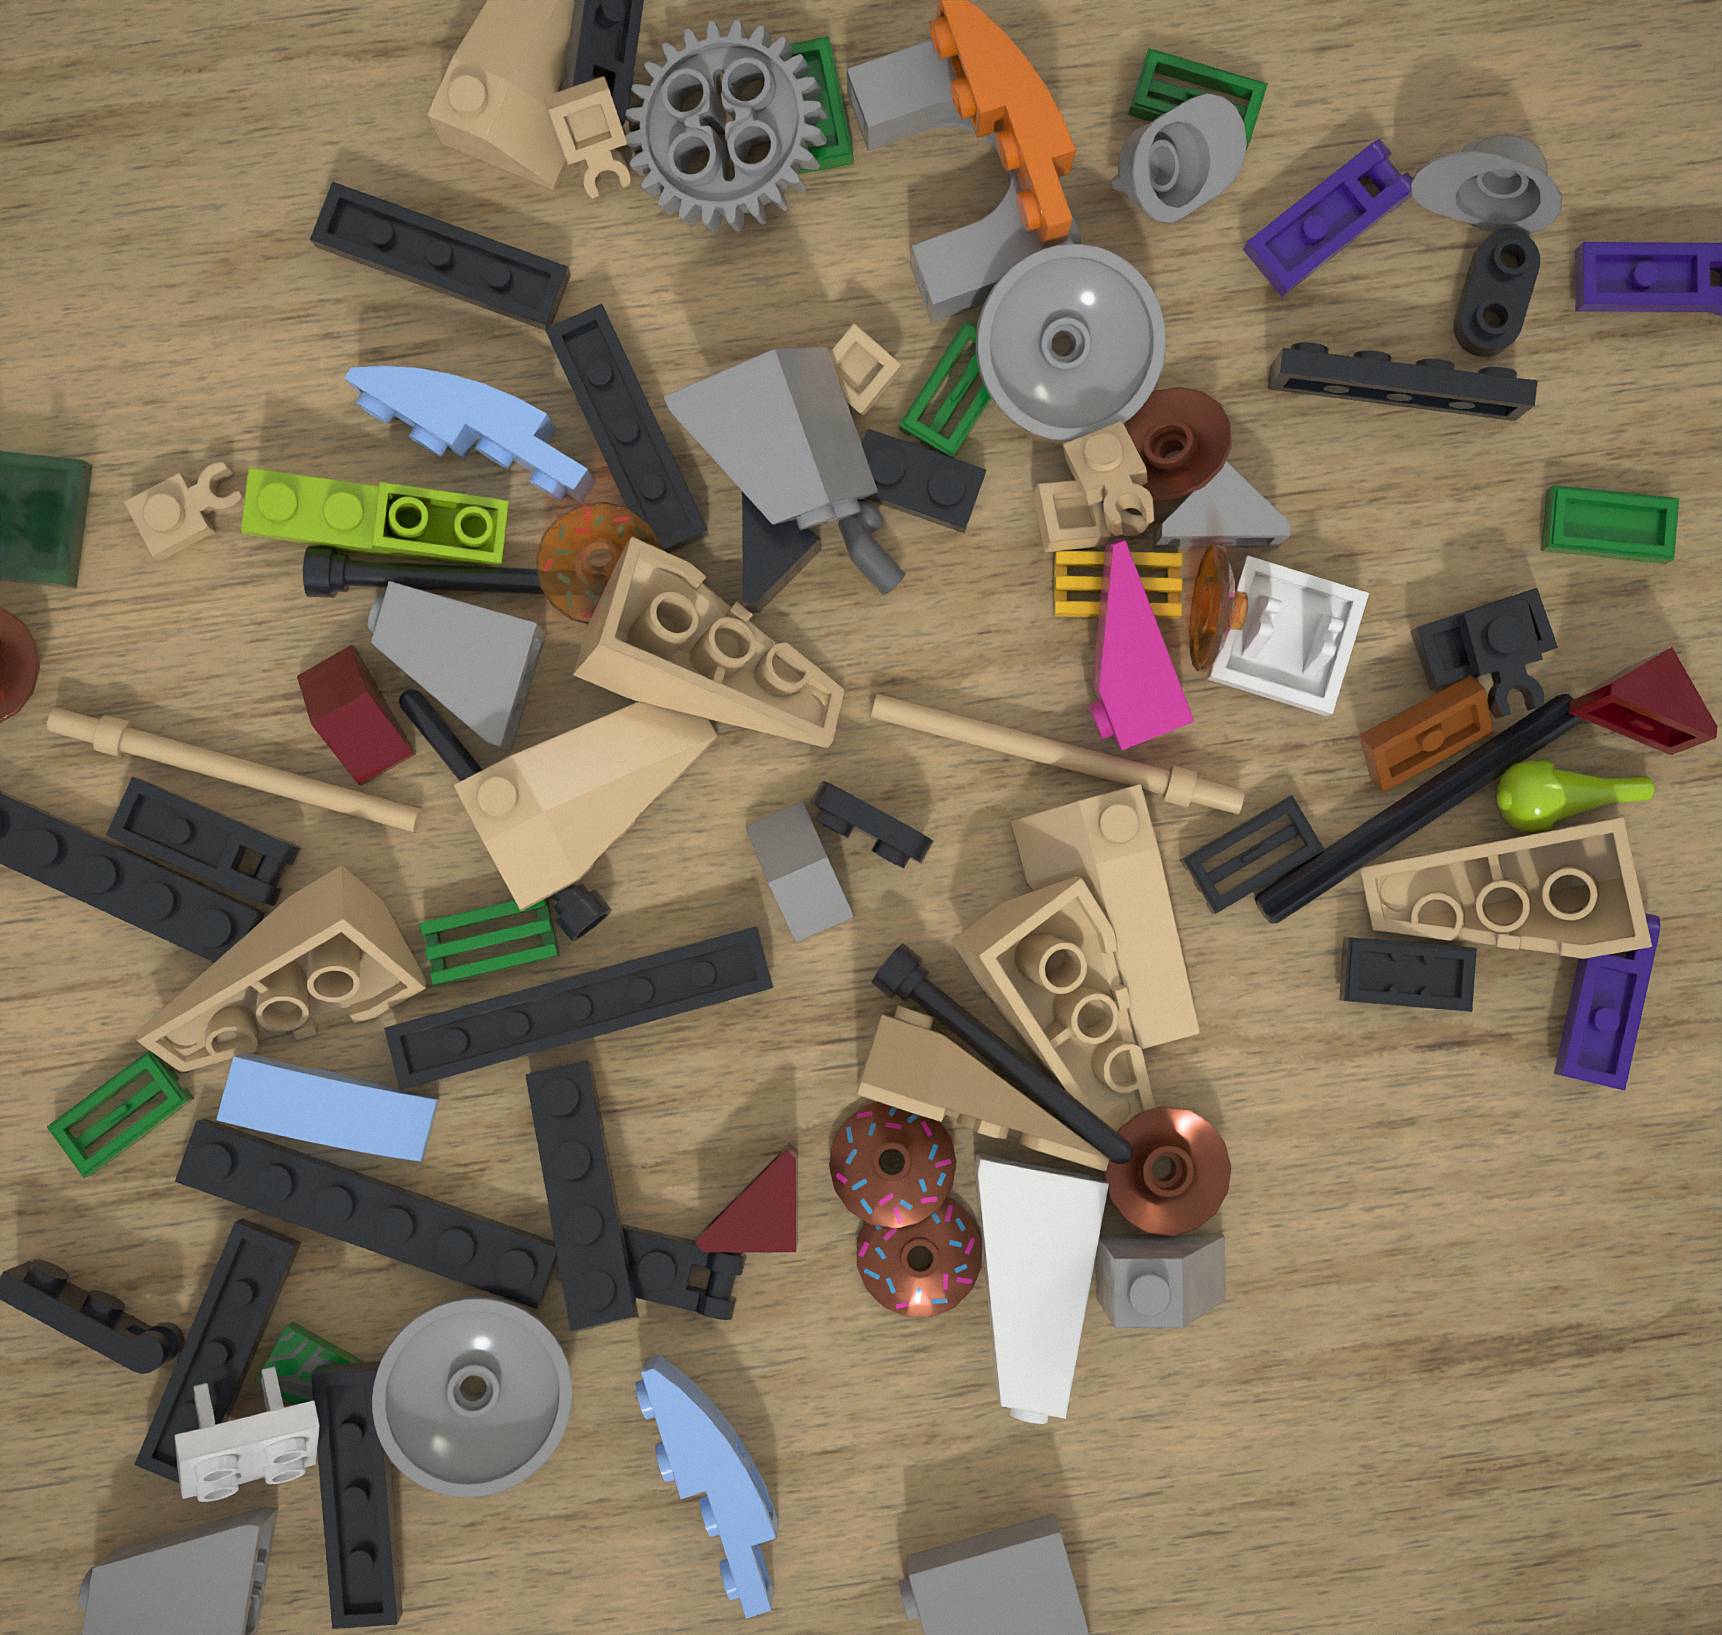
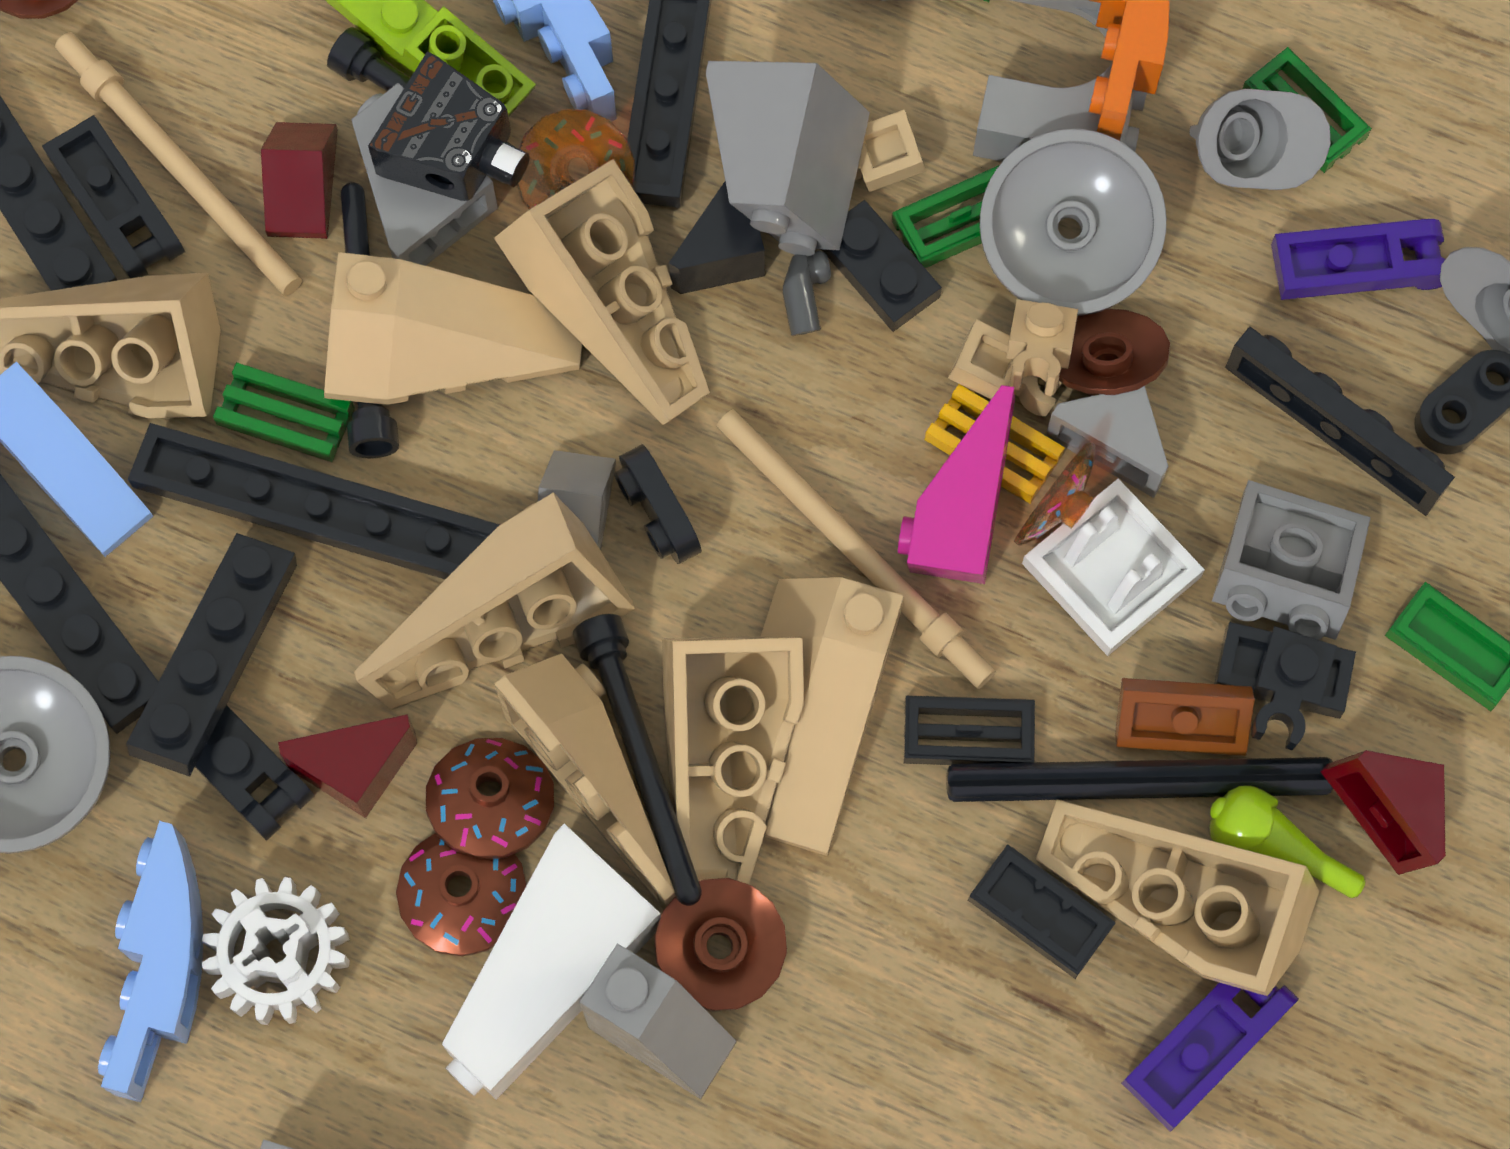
camera: 30 degrees right, 15 degrees down
(472, 610) = (446, 135): none -> torso
(801, 978) = (509, 595): none -> tan wedge
(828, 1420) = (255, 966): none -> white gear
(1437, 539) = (1291, 561): none -> light grey plate

